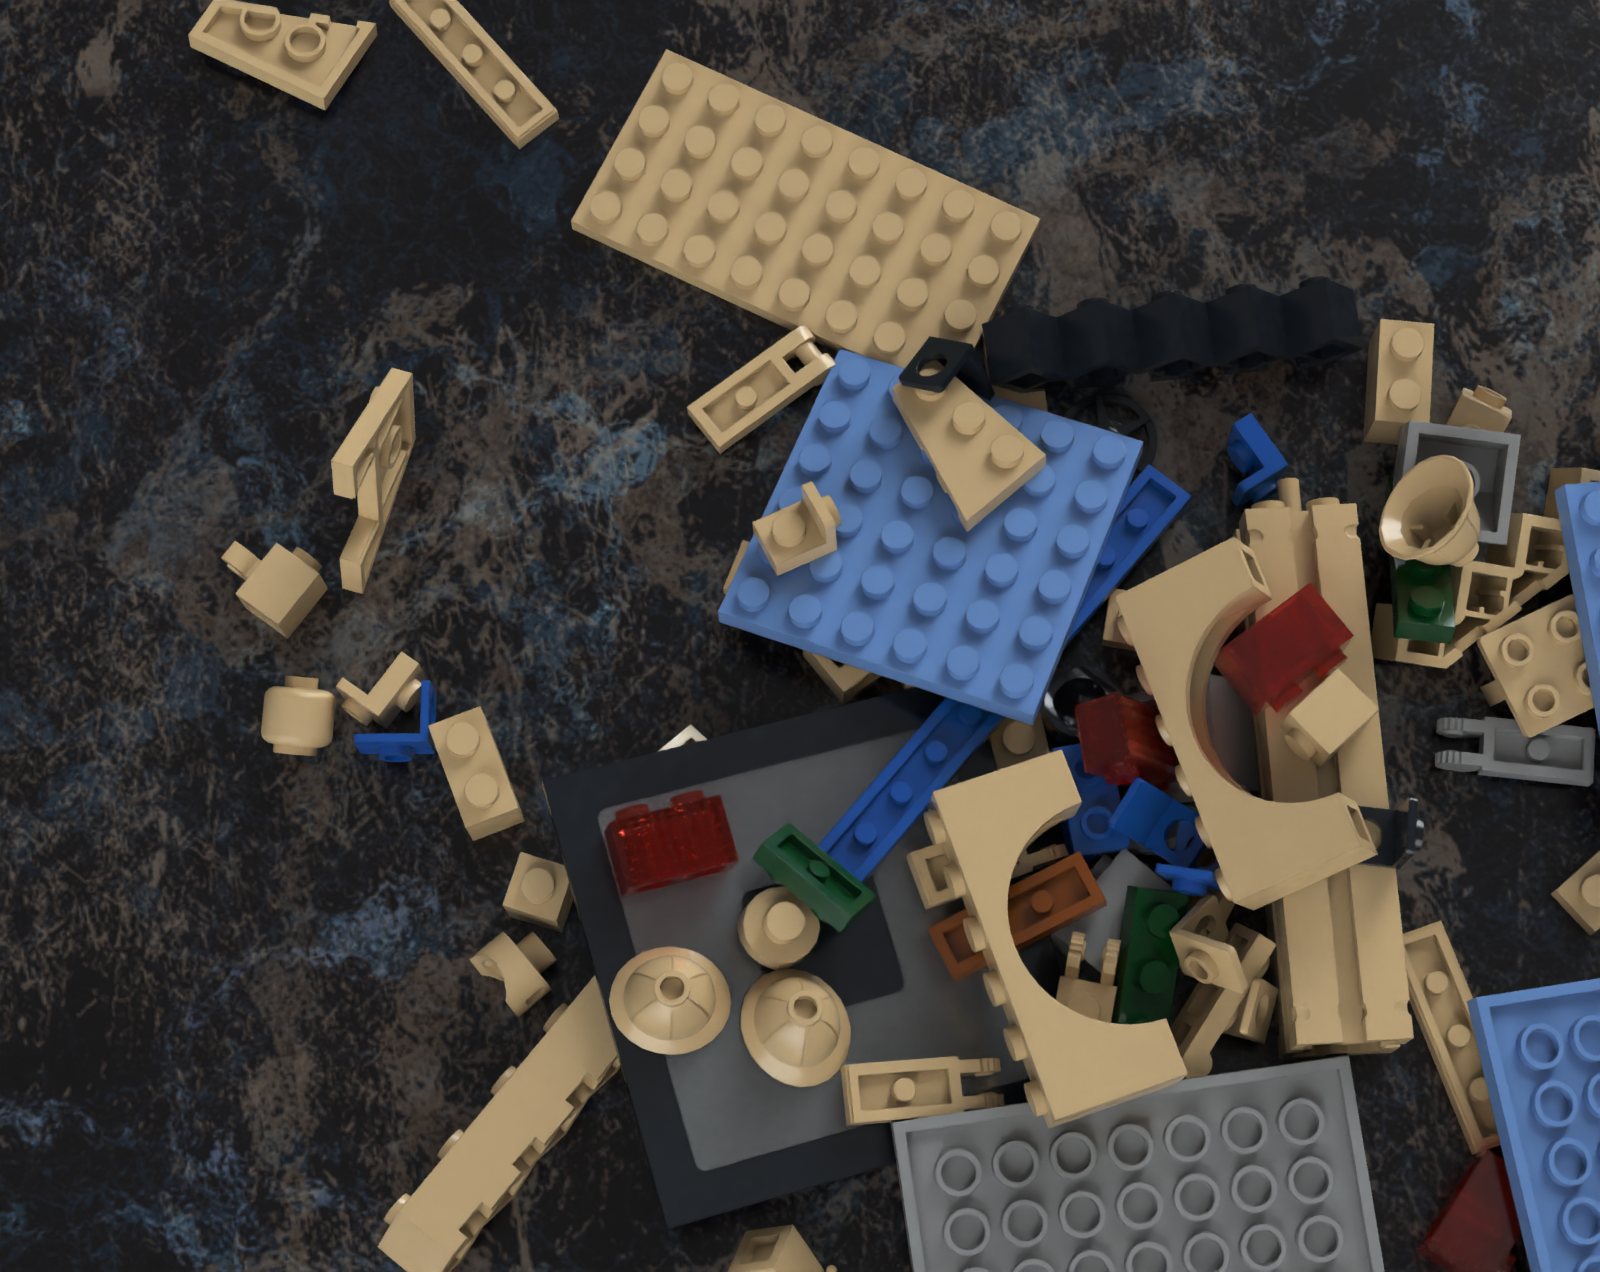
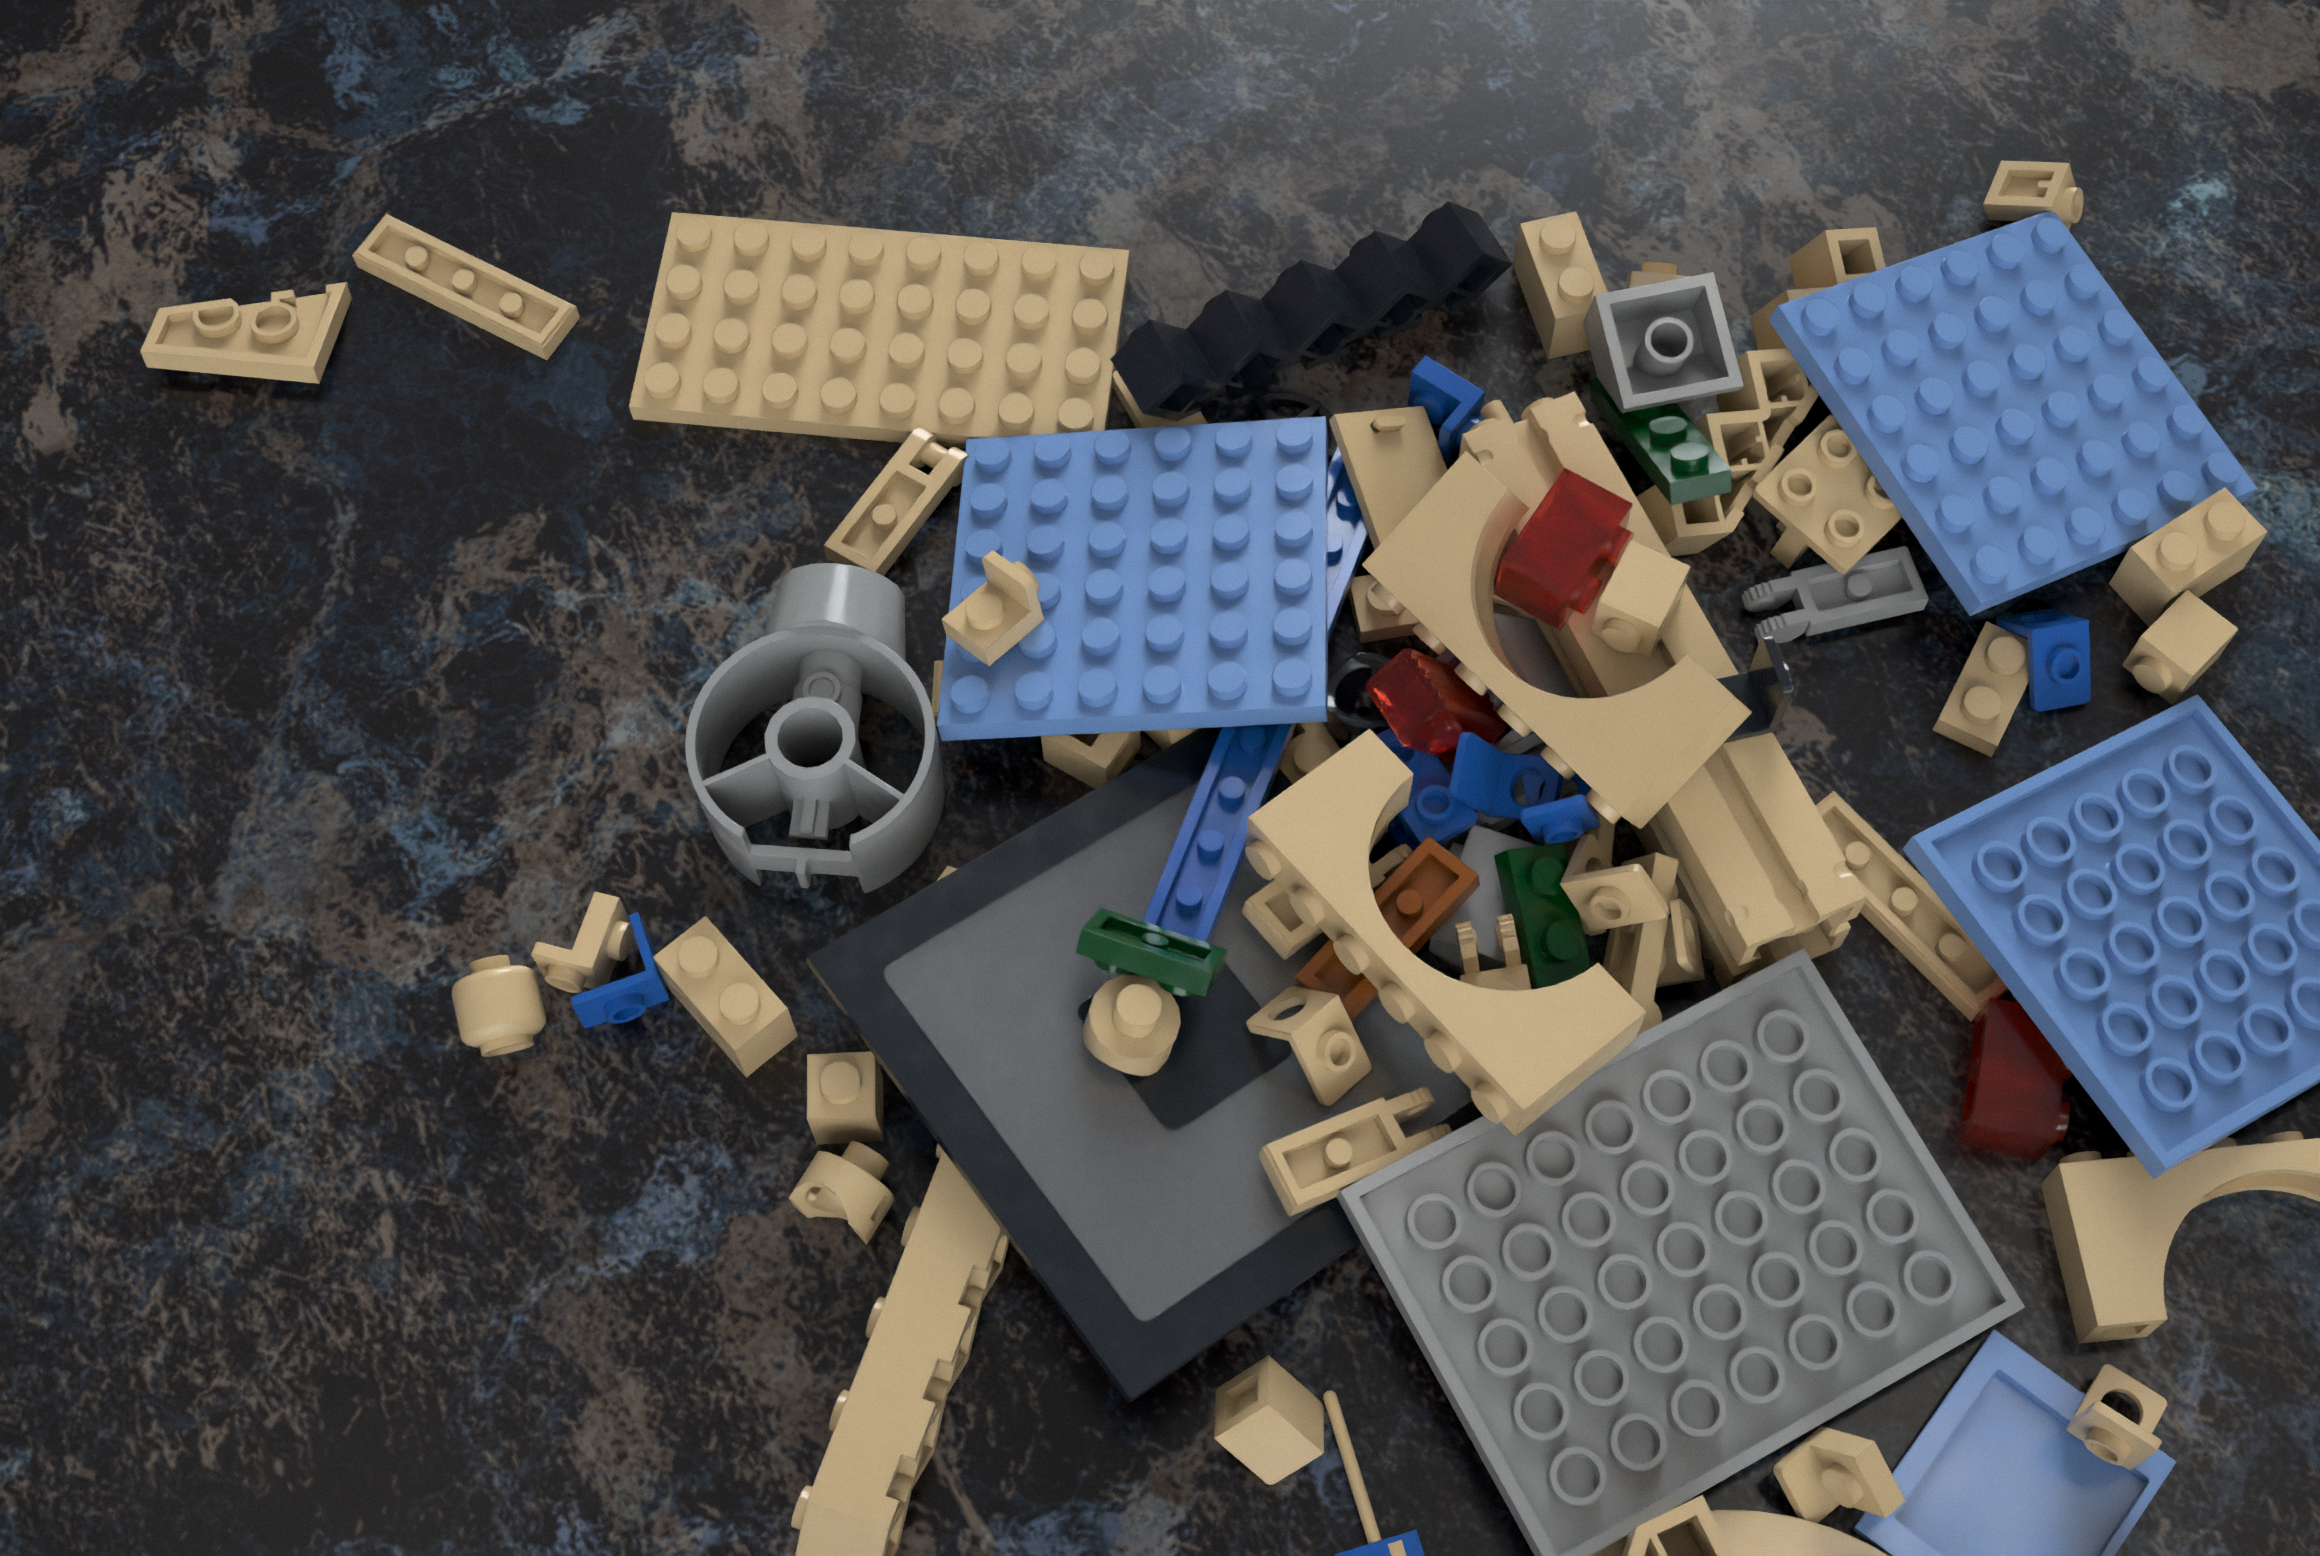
camera: 20 degrees left, 10 degrees down
(278, 587) = (429, 878): tan brick -> none
(372, 468) = (496, 695): tan wing -> none
(659, 500) = (825, 644): none -> light grey animal
(670, 843) = (976, 972): clear red brick -> none
(670, 1000) = (1038, 1146): tan hat -> none
(795, 1027) = (1191, 1130): tan hat -> none
(925, 988) = (1320, 1038): none -> tan bracket
(958, 360) = (1098, 405): black bracket -> none
(969, 444) = (1140, 470): tan wing -> none
(1183, 507) = (1388, 465): none -> tan container
(1432, 514) = (1661, 369): tan hat -> none

